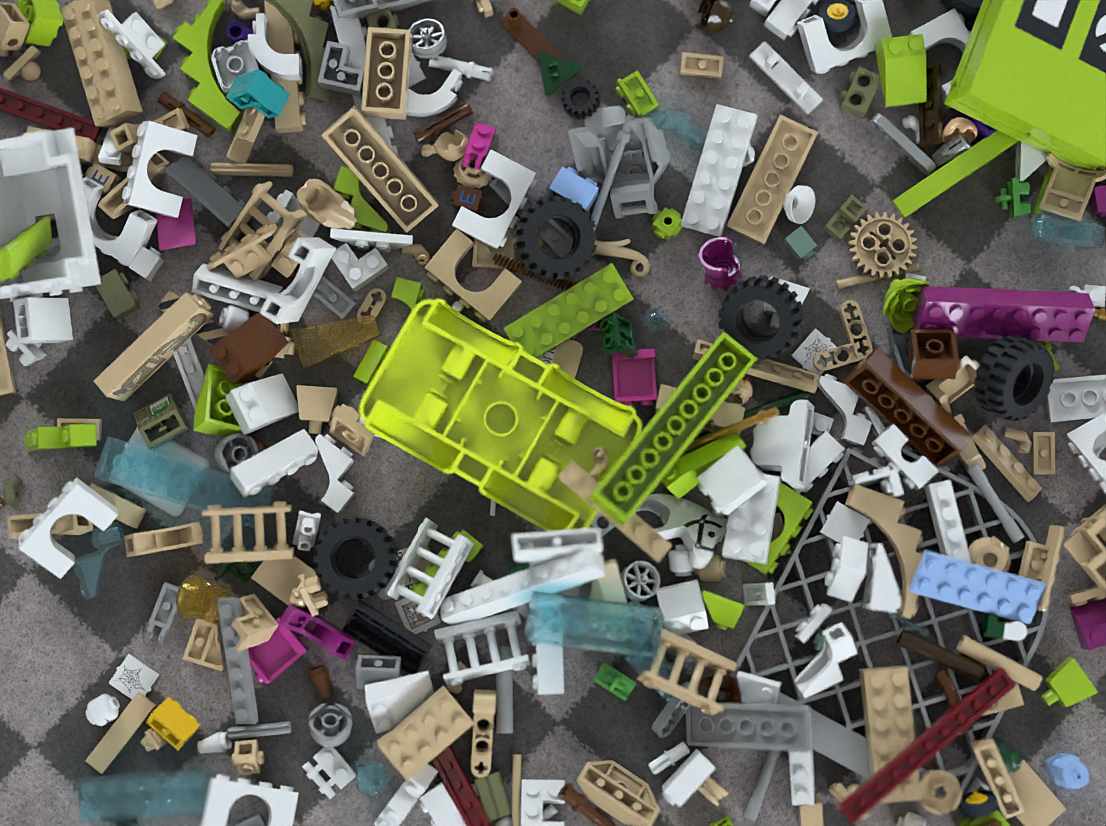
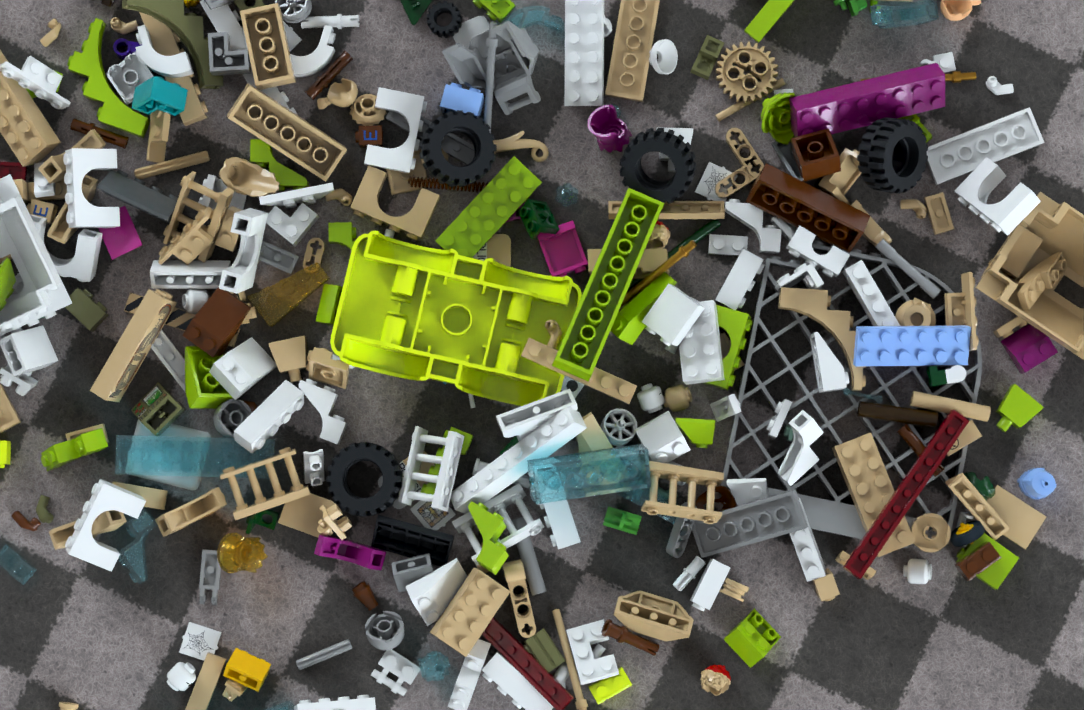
camera: 15 degrees left, 0 degrees up
(147, 262) = (103, 274): white brick -> none
(204, 645) = (254, 594): tan wing -> none
(215, 743) = (288, 677): white cone -> none
(237, 664) = (288, 598): light grey plate -> none
(247, 757) = (322, 683): tan brick -> none
(255, 625) = (292, 560): tan panel -> none
(276, 654) = (316, 582): dark pink panel -> none
(472, 651) = (491, 527): none -> lime arch
(479, 145) = (366, 86): dark pink hinge -> none
(663, 230) = (552, 114): lime brick -> none
(689, 521) = (645, 362): white animal -> none
(756, 800) = (775, 589): light grey piece -> none
(785, 443) = (710, 269): white brick -> none
(800, 244) = (674, 91): sand green brick -> none
(844, 522) = (783, 326): white piece -> none
(847, 568) = (795, 362): white brick -> none
(1006, 463) = (909, 231): tan plate -> none

